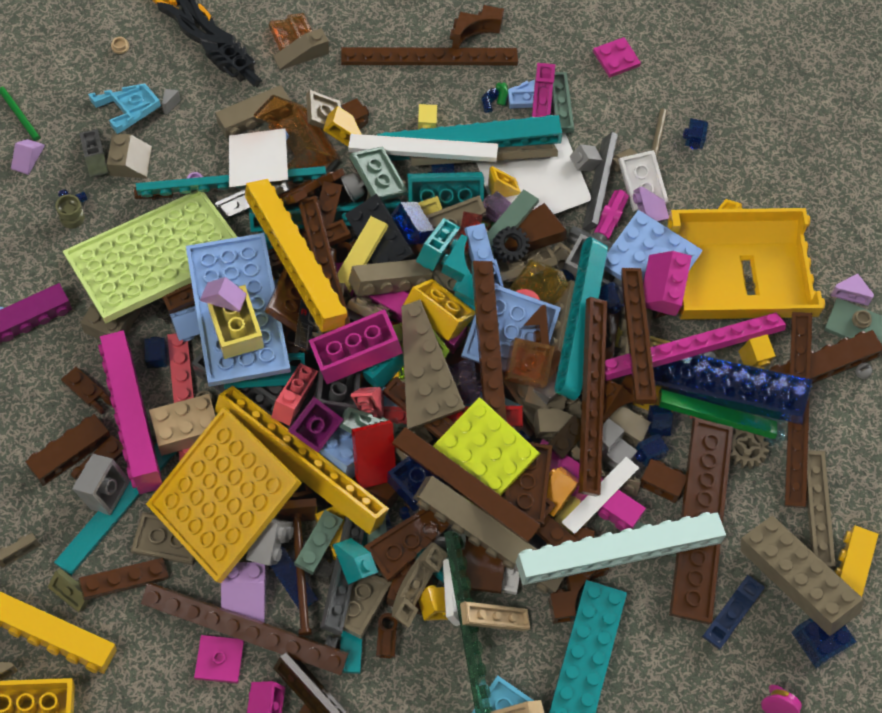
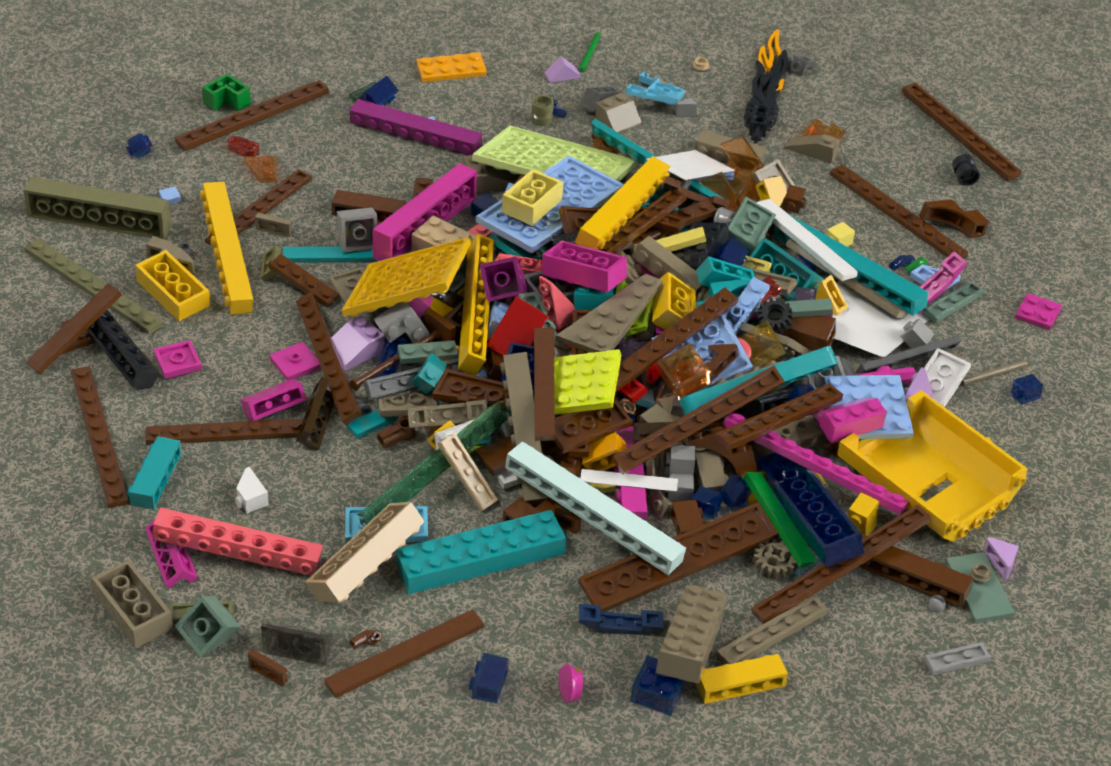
camera: 55 degrees right, 20 degrees down
(155, 202) = (598, 144): none -> clear orange arm
(224, 294) = (542, 174): lavender slope -> none

